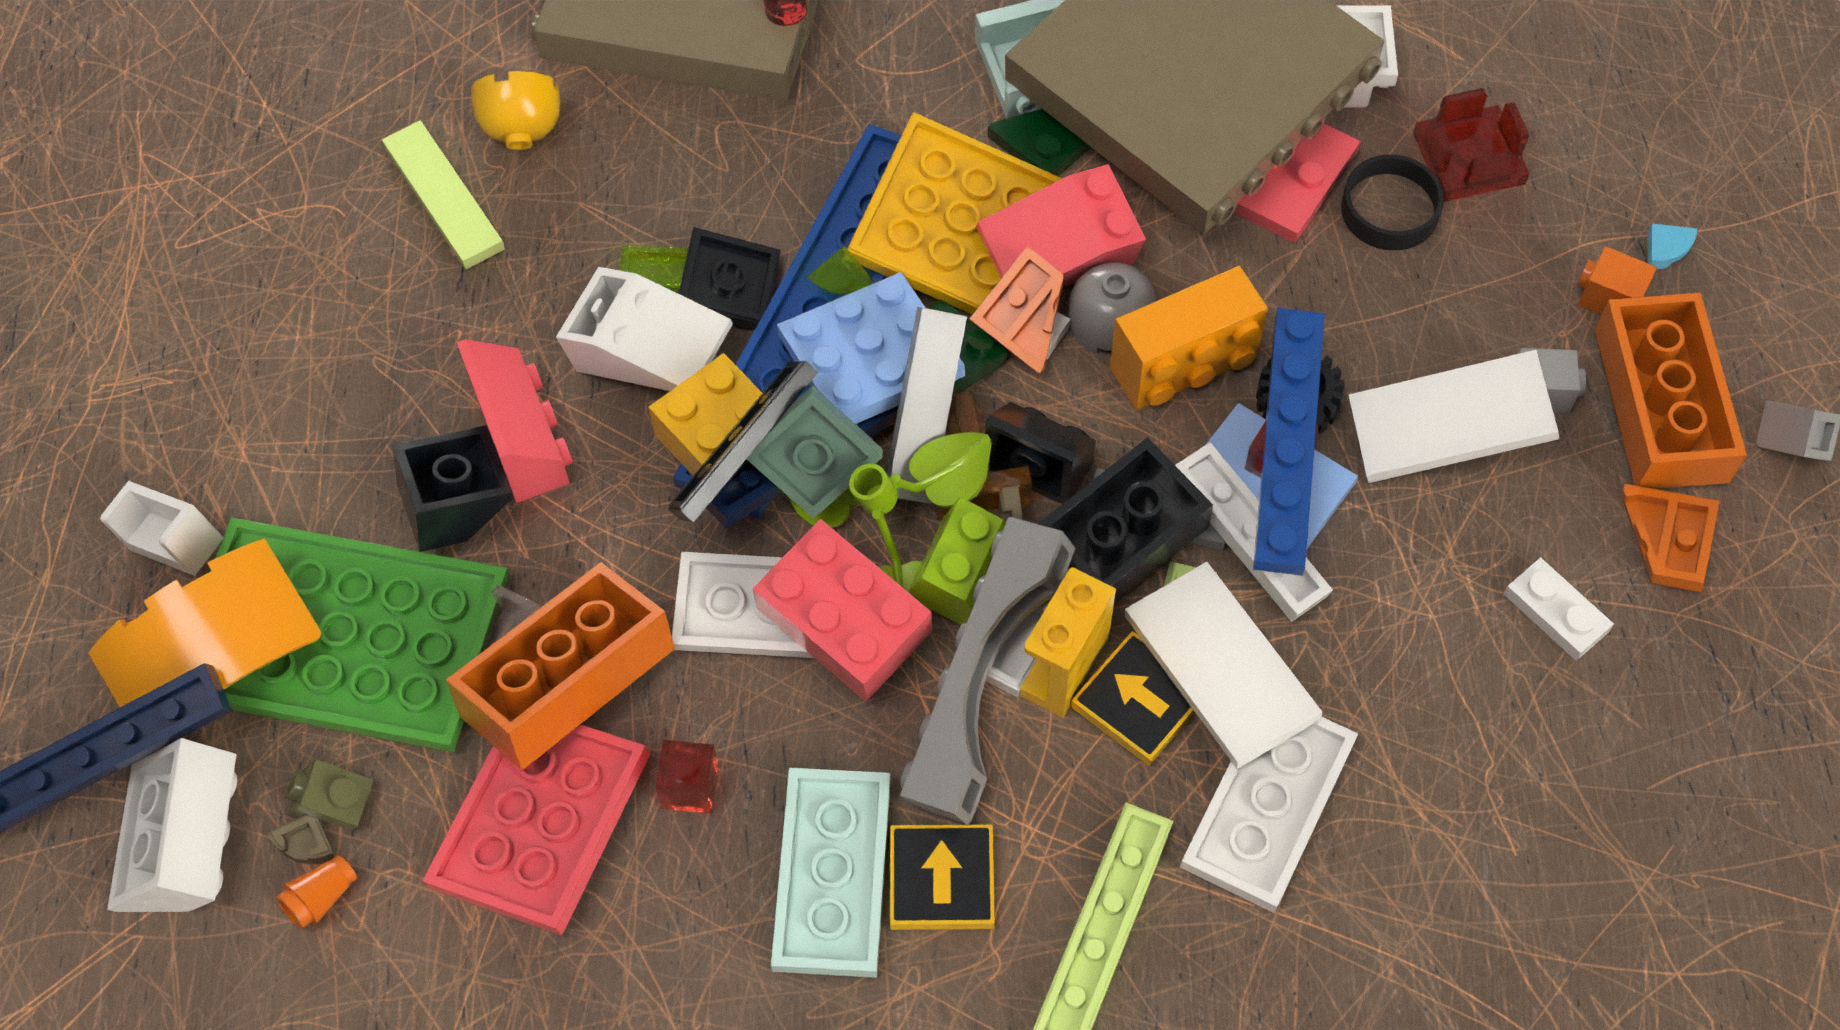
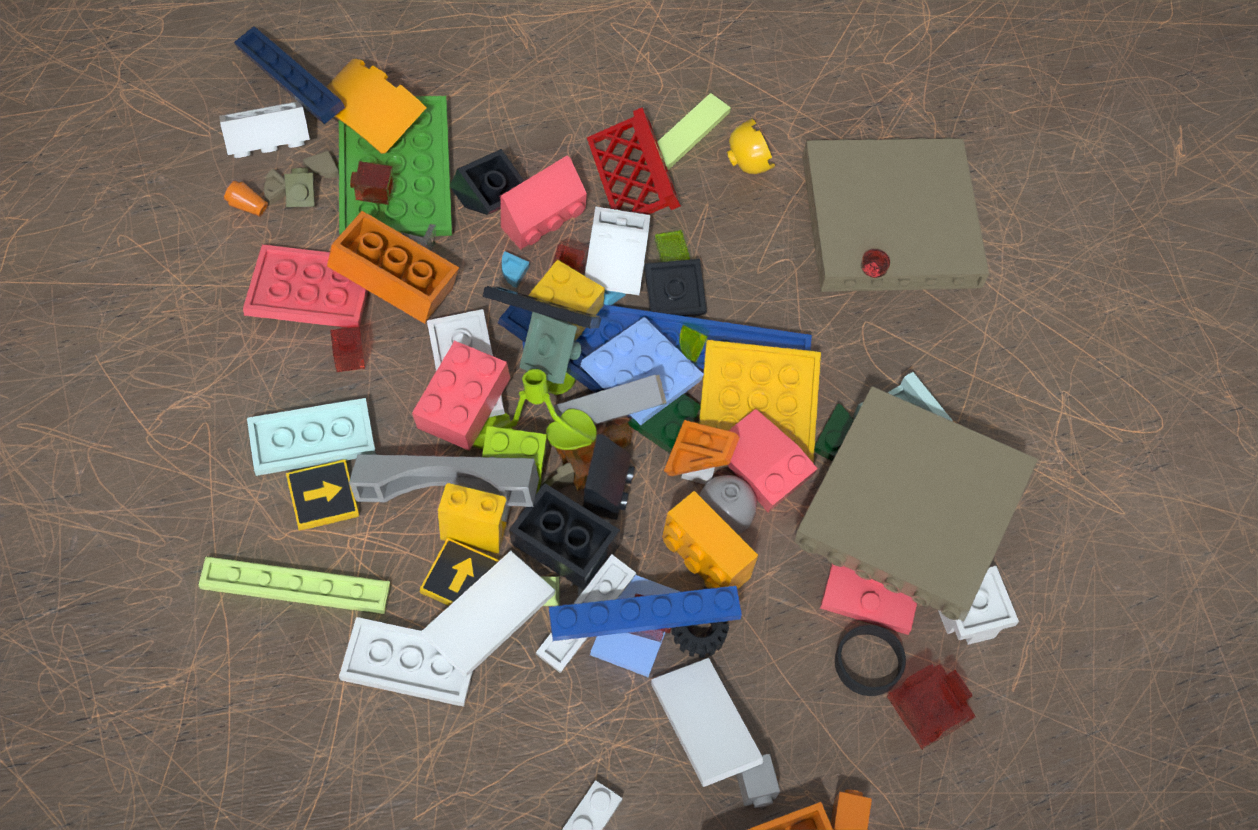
camera: 65 degrees right, 0 degrees up
(161, 528) = (428, 71): white panel -> none
(289, 751) = (322, 165): none -> dark tan tile
(378, 661) = (373, 182): none -> clear red brick
(478, 239) = (651, 154): none -> red fence
(606, 499) = (513, 268): none -> medium azure tile
(626, 403) = (571, 255): none -> clear red brick

